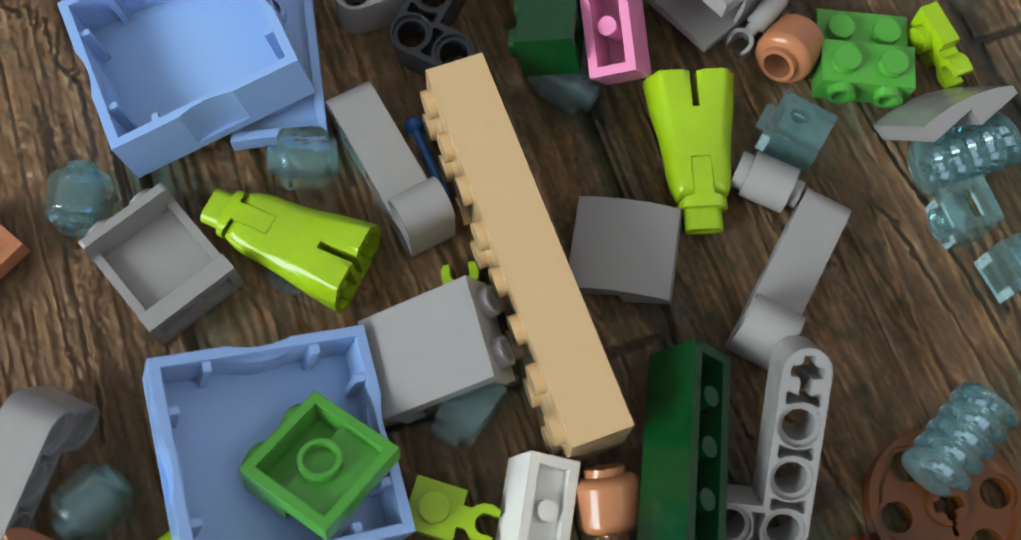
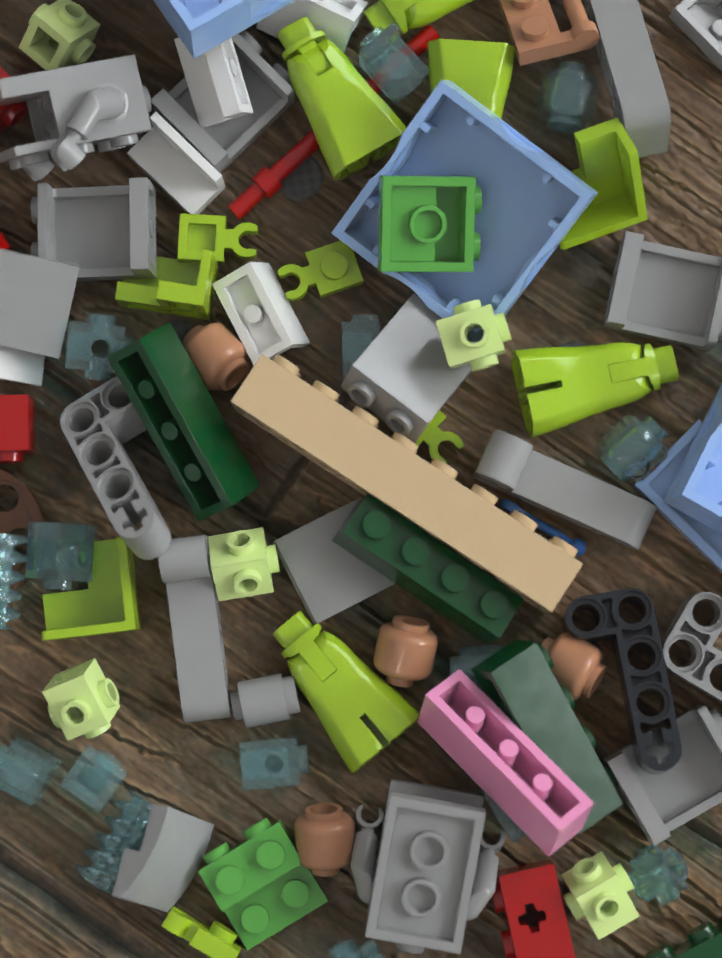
camera: 150 degrees right, 15 degrees up
(107, 390) = (613, 169): none -> lime panel
(362, 321) = (455, 332): none -> yellowish green brick
(488, 30) = (576, 664): none -> nougat head
(559, 180) = (427, 569): none -> dark green brick
(619, 138) = (405, 650): none -> nougat head
(713, 298) = (242, 564): none -> yellowish green brick
(876, 356) = (106, 605): none -> lime panel
(877, 424) = (60, 553): none -> clear light blue brick
(935, 285) = (82, 700): none -> yellowish green brick

